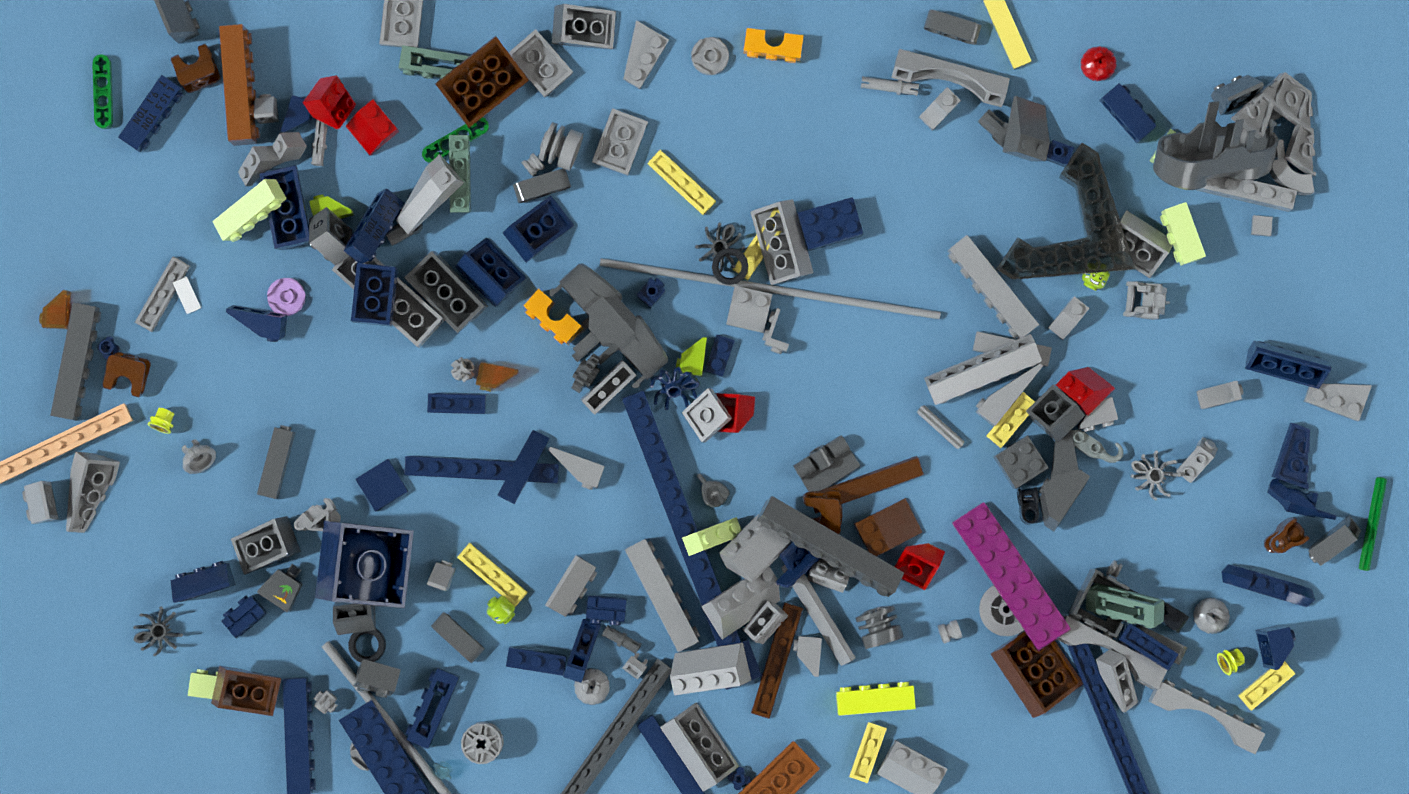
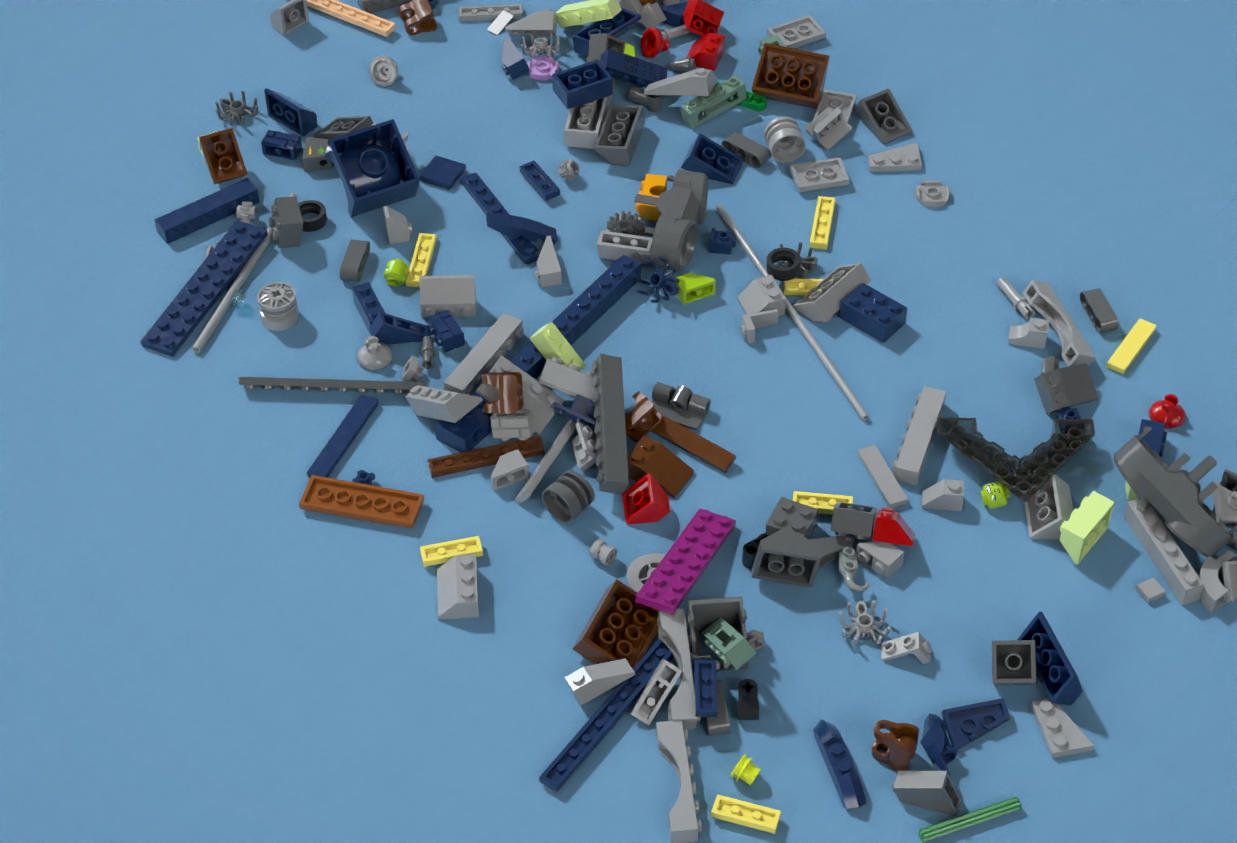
camera: 65 degrees right, 40 degrees down
(89, 481) = (317, 34): light grey wedge -> none
(162, 421) = (397, 45): neon yellow piece -> none
(226, 266) = (537, 23): none -> light grey slope
(258, 281) = (540, 46): none -> light grey animal
(276, 462) = (415, 110): dark grey brick -> none
(330, 171) = (653, 43): none -> red hair
(353, 618) = (327, 190): dark grey slope -> none
(379, 159) = (683, 65): none -> dark grey cone
(420, 737) = (286, 270): dark blue brick -> none
(490, 272) = (656, 151): dark blue slope -> none
(494, 376) = (578, 188): clear orange slope -> none
(533, 165) = (757, 136): light grey wheel -> none
(566, 92) = (828, 128): none -> light grey bracket
(699, 747) = (373, 438): light grey slope -> none
(706, 415) = (654, 310): plate -> none
(713, 492) = (593, 348): dark grey piece -> none
(719, 355) = (708, 304): dark blue plate -> none
(739, 408) = (672, 328): red slope -> none
(746, 617) = (510, 392): none -> reddish brown piece
(756, 46) = (969, 211): light orange arch -> none
(875, 699) = (502, 532): neon yellow brick -> none
(940, 426) = (774, 462): light grey axle -> none
(983, 369) = (847, 456): light grey brick -> none
(999, 402) = (832, 483): light grey slope -> none
(1079, 716) = (598, 678): none -> light grey slope
(1153, 300) = (1004, 545): light grey piece -> none
(1203, 615) = (775, 738): light grey hair -> none
(1219, 394) = (978, 636): light grey bracket -> none
(1273, 394) = (1014, 662): none -> dark grey brick
(1275, 645) = (788, 782): dark blue slope -> none

